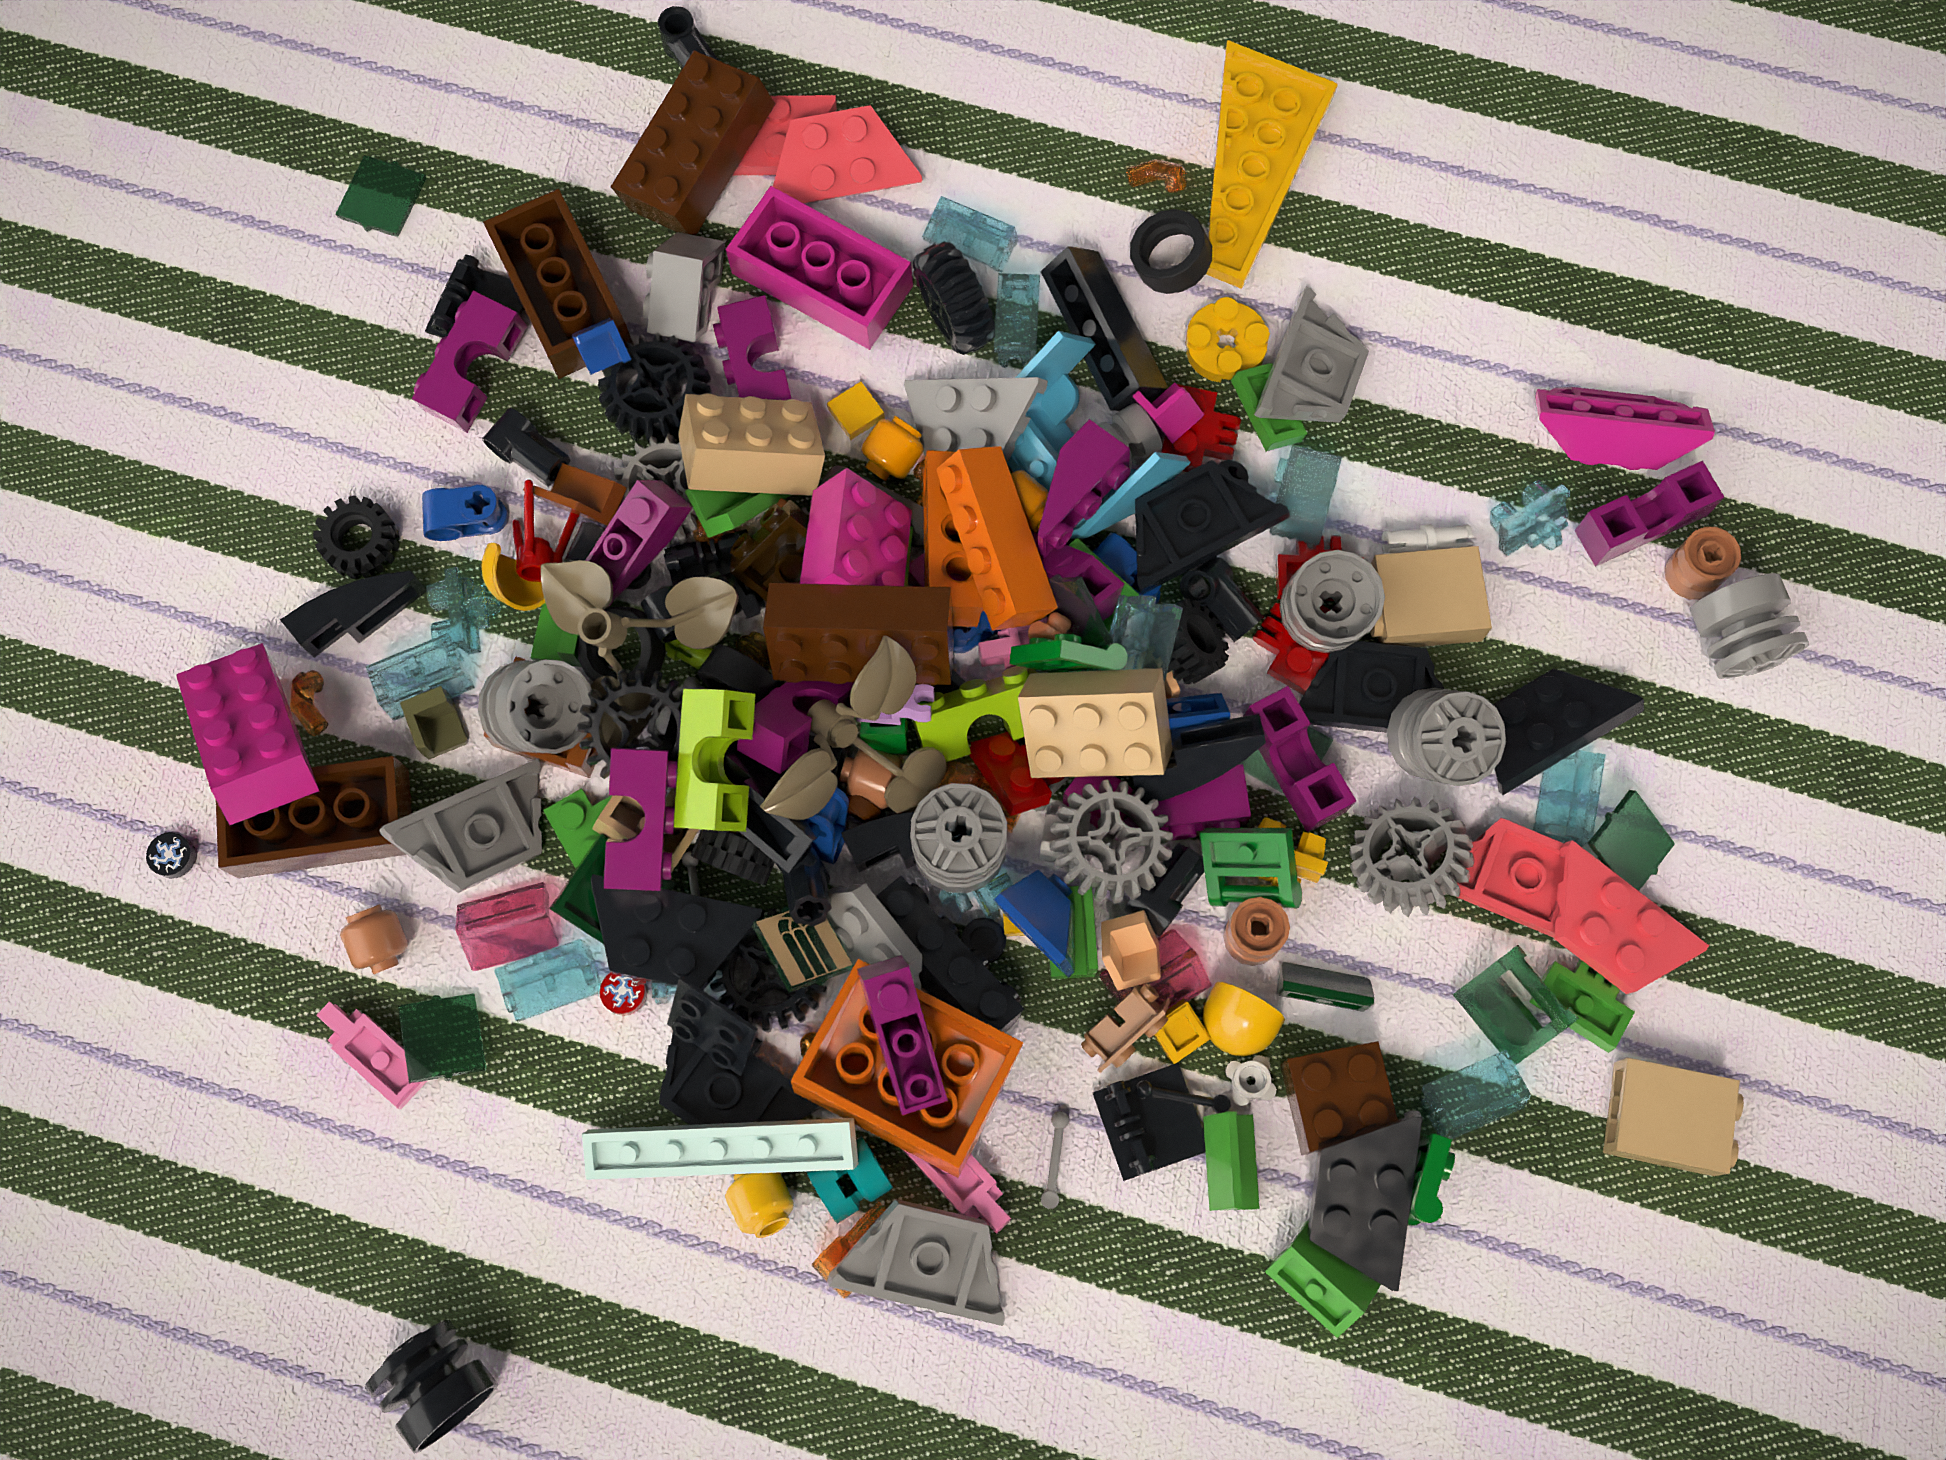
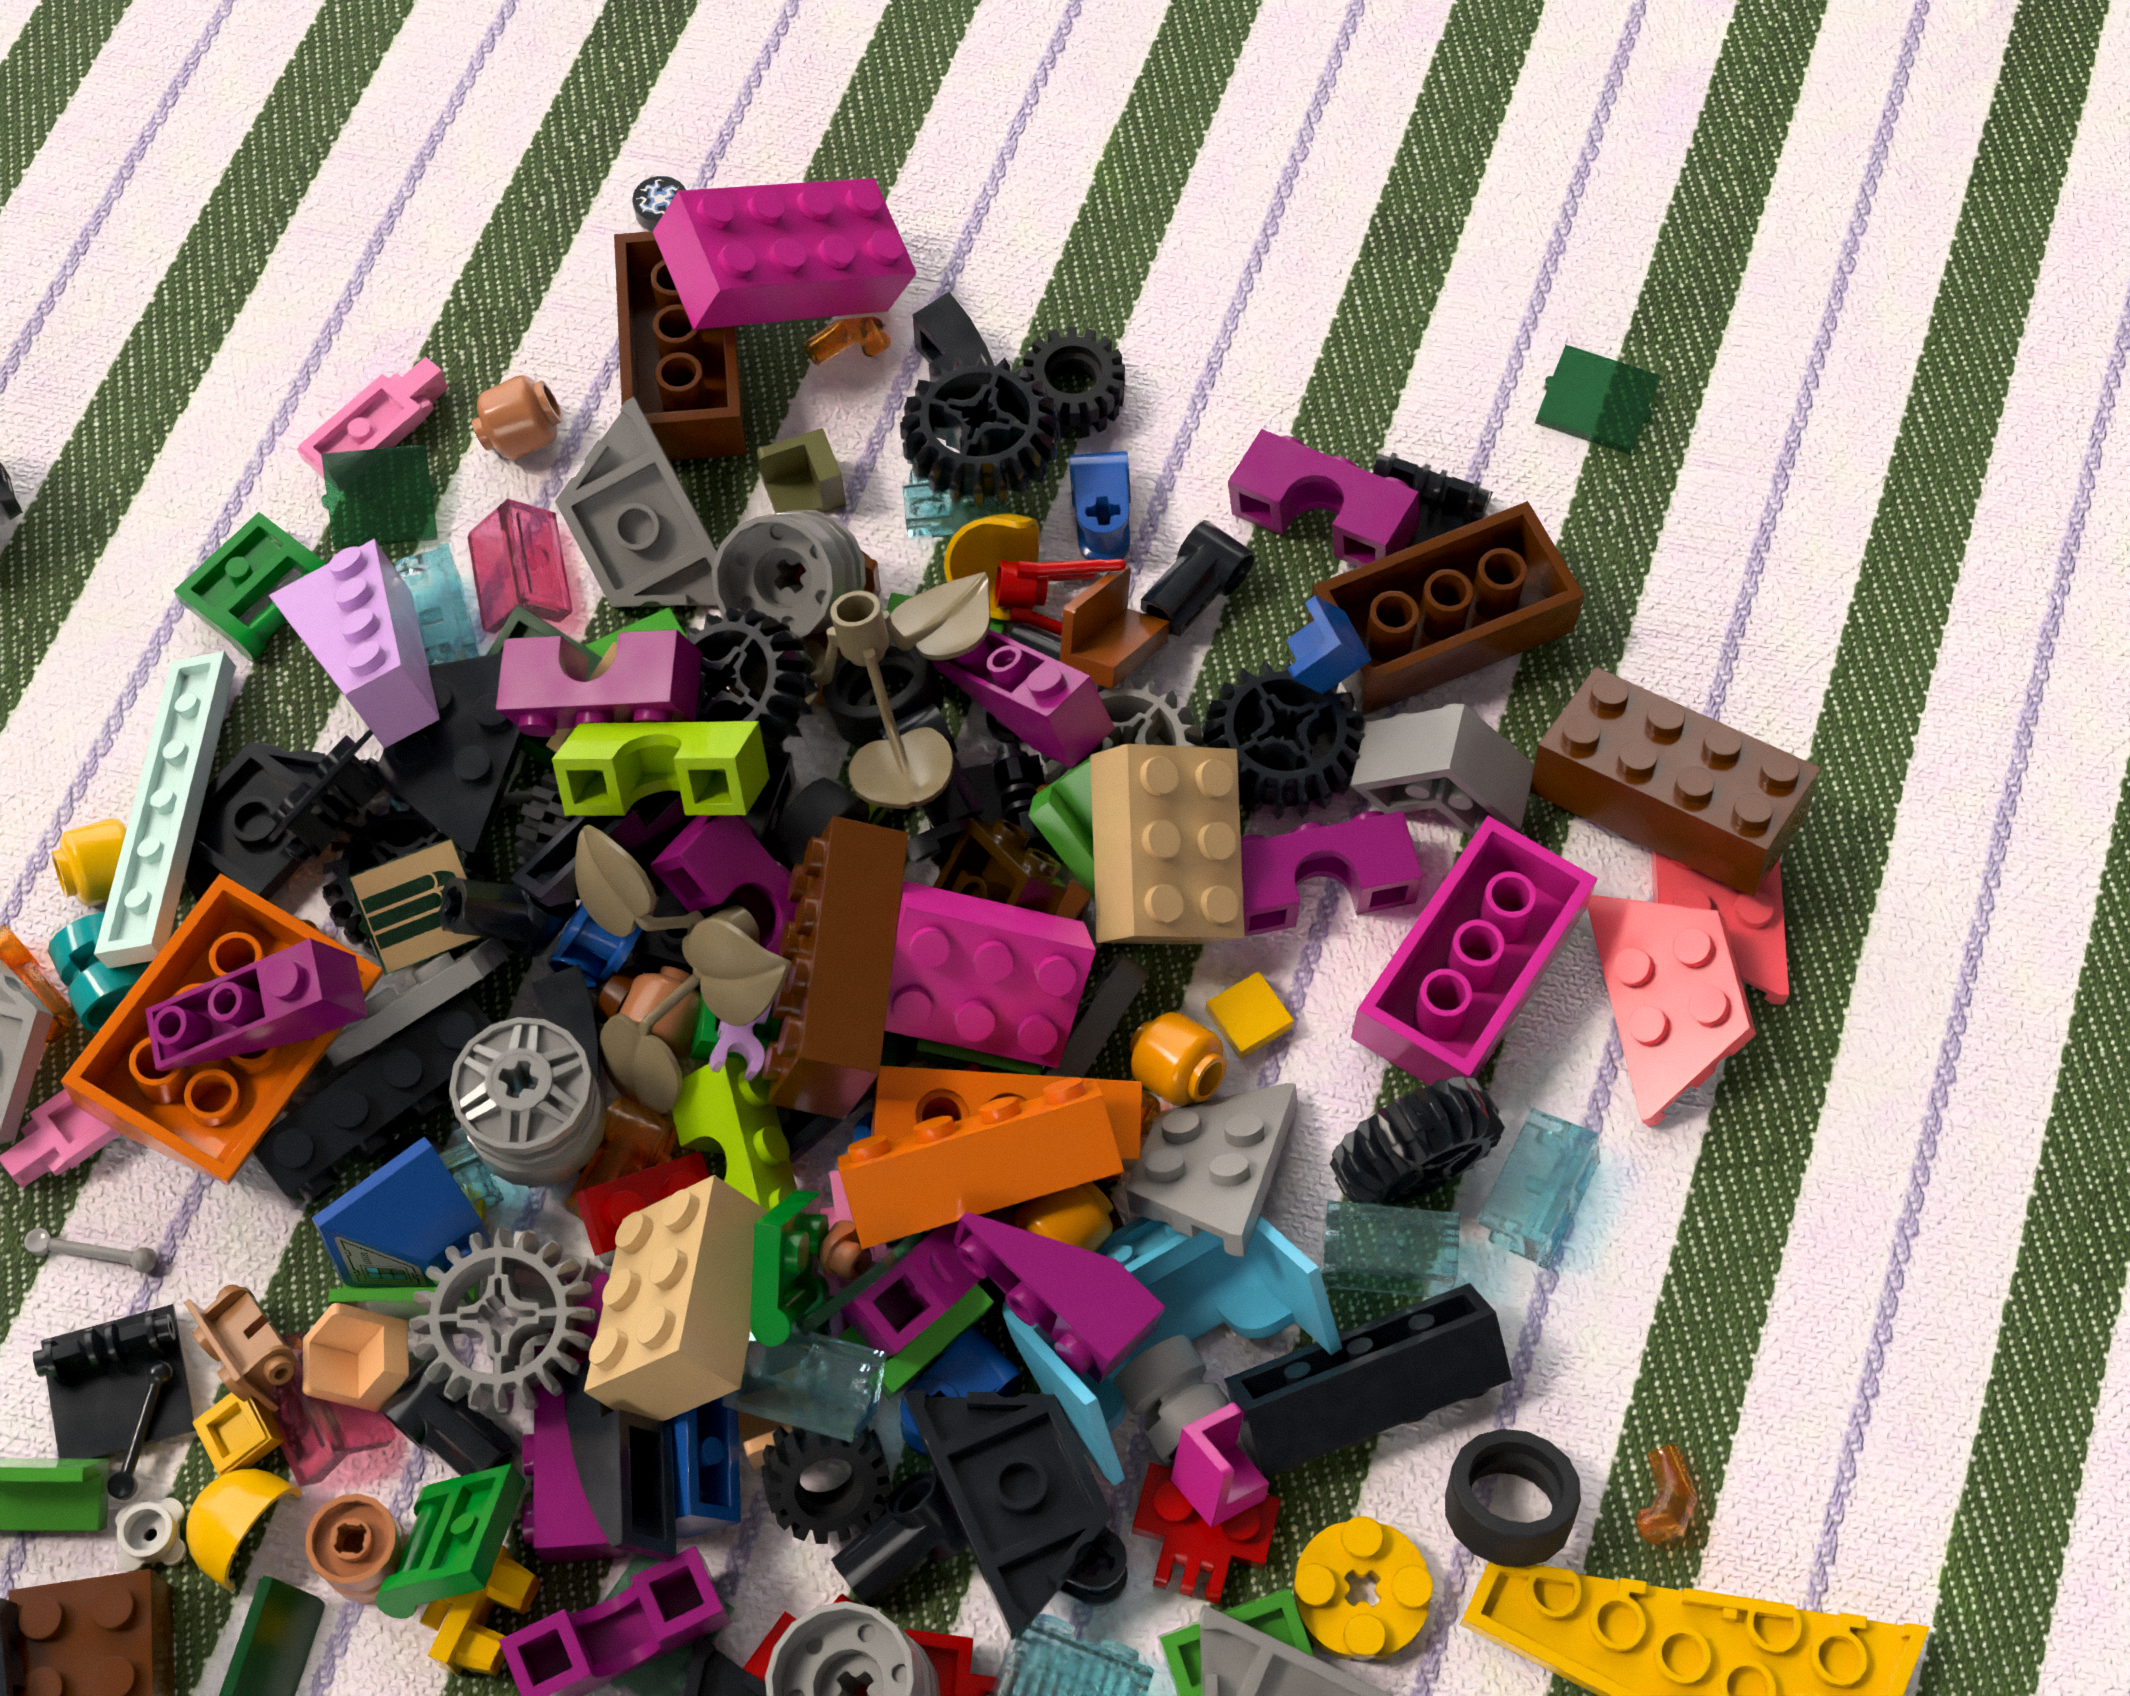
camera: 90 degrees right, 10 degrees down
(417, 552) = (968, 414): none -> black gear
(418, 671) = (866, 454): clear light blue hinge -> none
(507, 1135) = (239, 577): none -> green plate
(578, 1019) = (366, 638): none -> lavender wedge
(681, 46) = (1856, 787): black piece -> none

